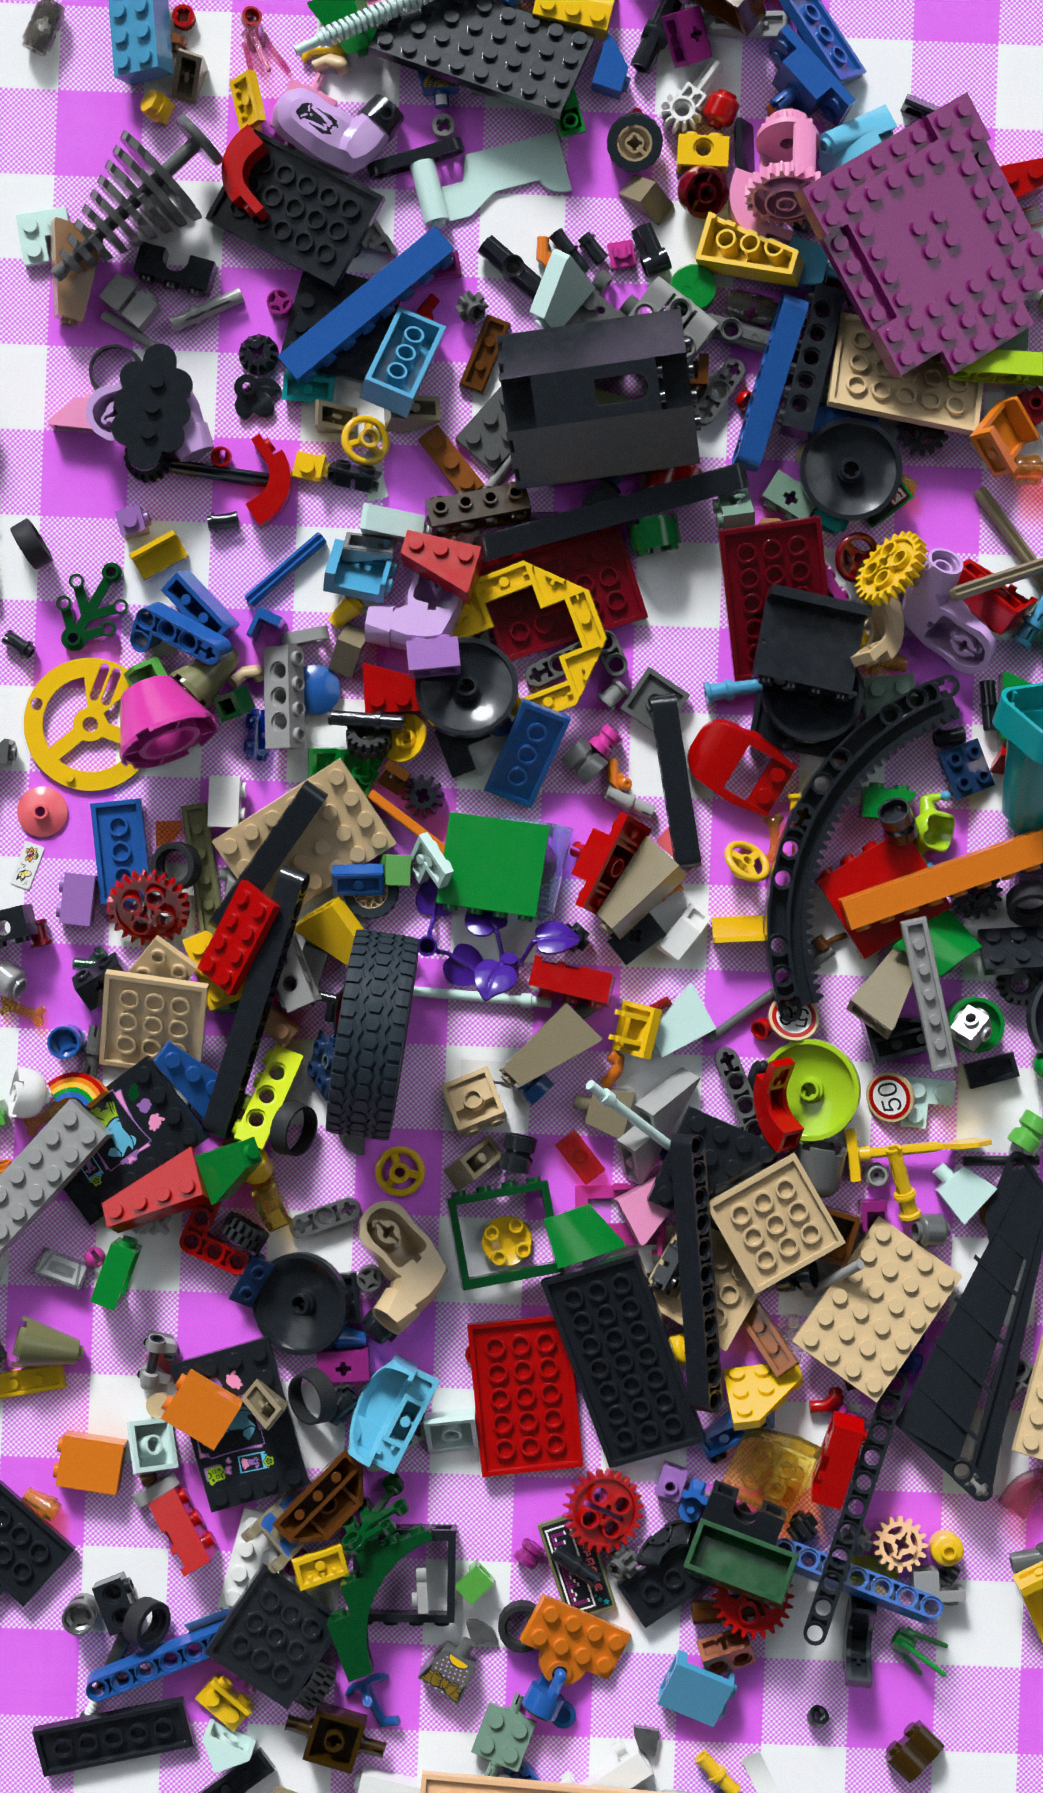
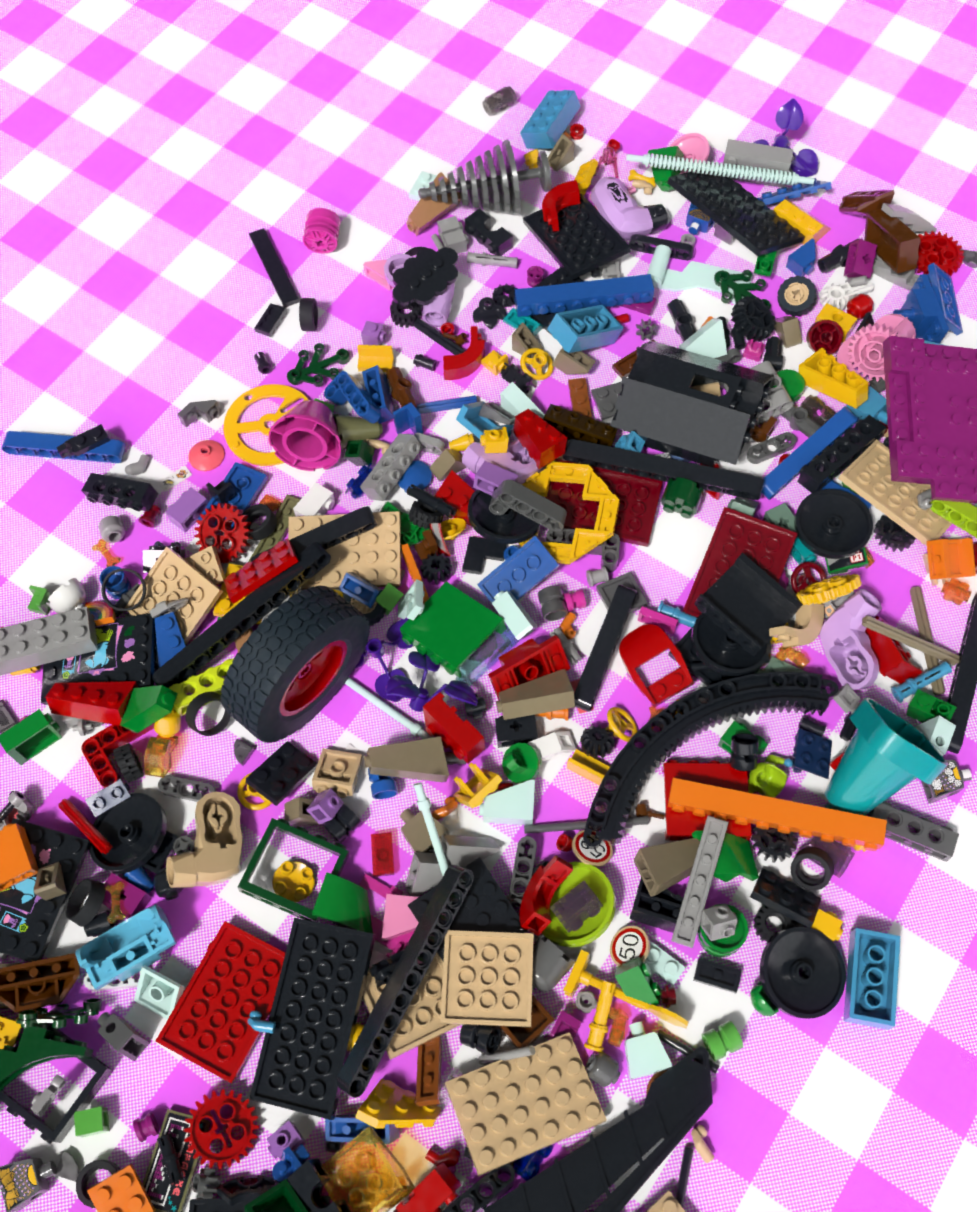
camera: 35 degrees right, 25 degrees down
(103, 1070) = (103, 589): none -> black tyre
(106, 856) = (222, 492): none -> black panel
(155, 1044) = (167, 607): none -> light grey plate
(223, 582) = (401, 387): none -> reddish brown piece
(241, 460) = (458, 339): none -> reddish brown hand
(248, 1324) = (85, 826): none -> red axle
(353, 1388) = (116, 913): none -> clear yellow piece
(400, 604) = (495, 440): none -> yellow brick
(404, 760) = (438, 536): none -> sticker
(416, 1140) = (281, 773): none -> black plate
(454, 1493) = (121, 1036): none -> dark grey torso
(490, 1149) = (325, 806): none -> medium lavender brick
(492, 669) = (528, 503): none -> dark grey beam
(546, 499) = (629, 441): none -> dark azure brick
(555, 170) = (738, 289): none -> dark green plant
(555, 807) = (514, 615): none -> light aqua slope
(575, 1401) = (260, 1025): none -> dark azure arm
(599, 214) = (753, 318): none -> black gear
(665, 971) = (521, 763): none -> green tile
(694, 74) = (857, 281): none -> light grey arm
(713, 709) = (652, 617): none -> dark pink tile
(737, 890) = (597, 741): none -> black gear
(819, 1097) = (576, 907): none -> brick
(920, 1130) = (637, 983): none -> slope
(921, 1179) = (617, 1030): none -> arm
(937, 374) = (923, 500): none -> light grey arm
(954, 1120) = (668, 996): none -> dark red plate
(975, 689) = (847, 699): none -> light grey plate

